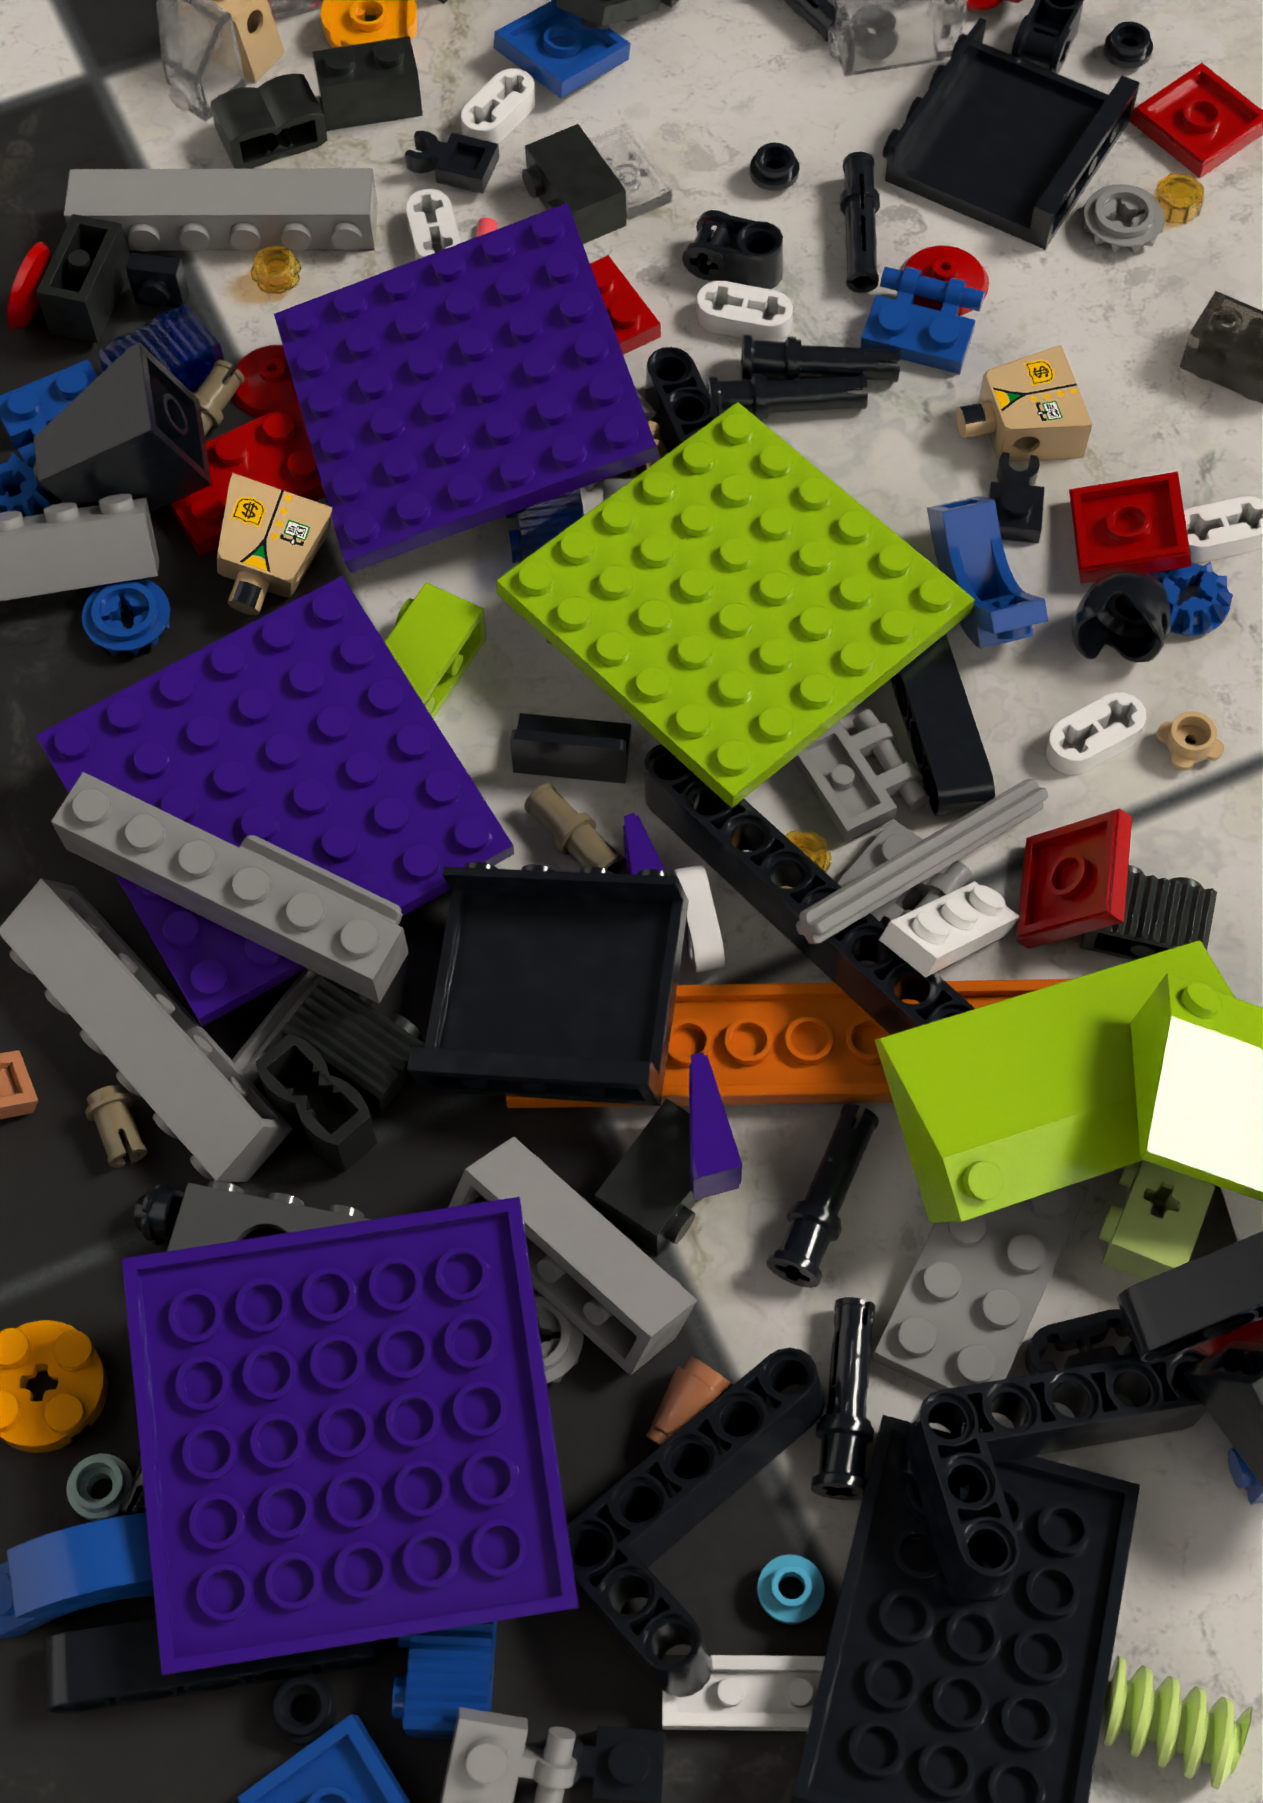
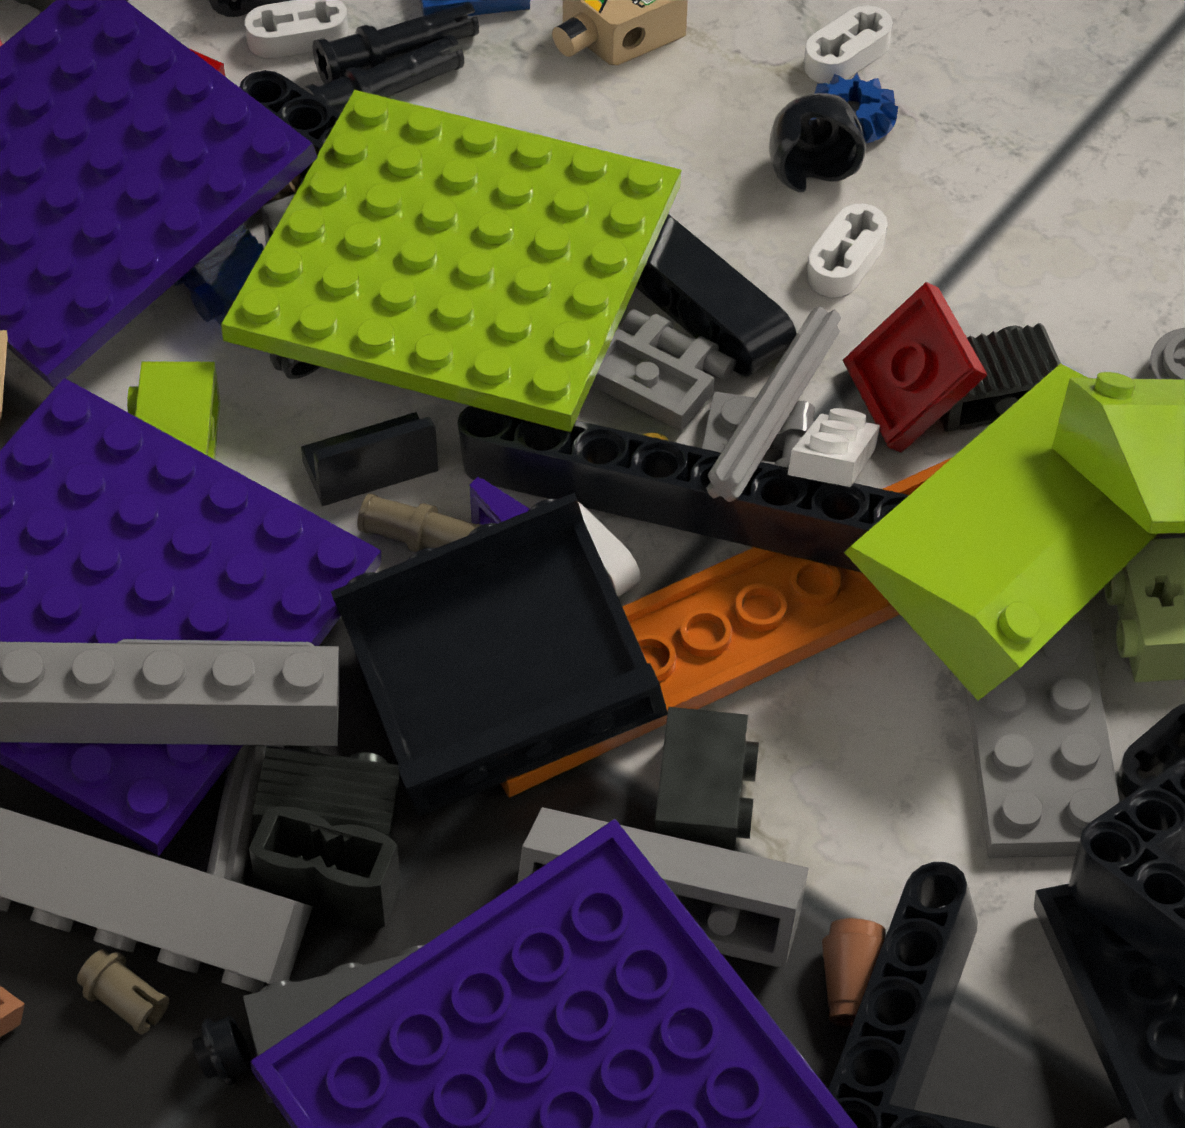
camera: 30 degrees left, 10 degrees down
(713, 1150) = (738, 710): dark purple slope -> none
(790, 1610) = (1043, 1101): medium azure plate -> none
(816, 1219) = (864, 756): black pin -> none
(844, 1426) = (1006, 919): black pin -> none
(973, 557) = (641, 129): blue arch -> none
(1018, 501) = (651, 96): black plate -> none
(1130, 527) = (769, 68): red plate -> none
(1194, 727) = (933, 220): tan plate -> none

